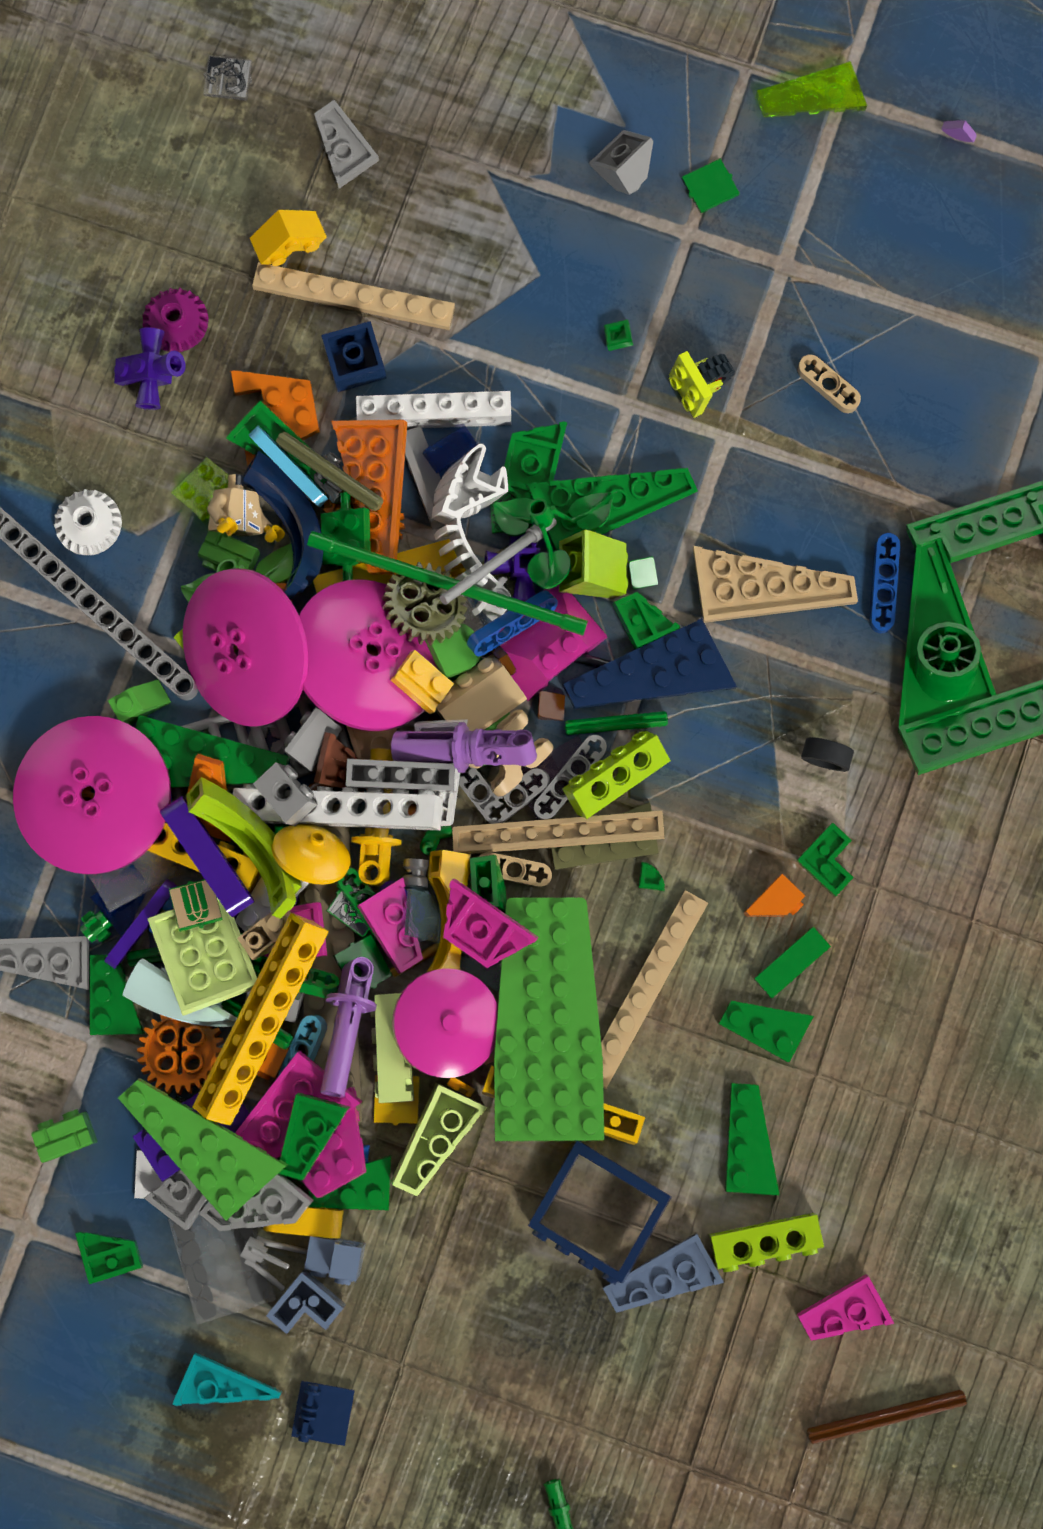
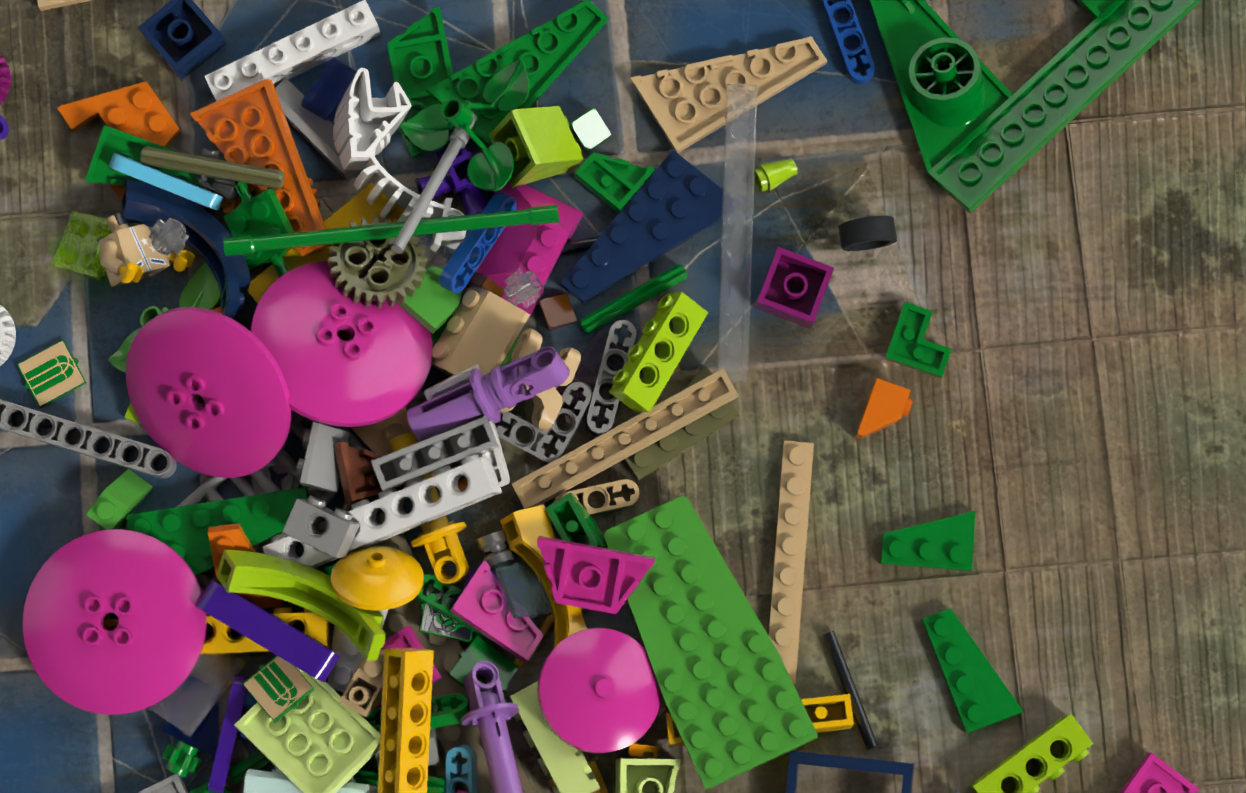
camera: 25 degrees left, 0 degrees up
(132, 578) = (51, 373): none -> piece
(220, 547) = (133, 298): bright green brick -> none
(271, 510) = (168, 236): none -> clear gear
(422, 681) = (412, 345): yellow plate -> none
(432, 838) = (496, 505): green arm -> none
(530, 675) = (522, 288): none -> clear gear
(648, 1111) = (850, 688): none -> black bar
(650, 878) = (742, 444): green tile -> none
(723, 705) = (737, 230): none -> clear plate
(748, 771) = (794, 287): none -> magenta brick
(773, 673) = (773, 174): none -> lime cone
(792, 962) = (928, 465): green tile -> none

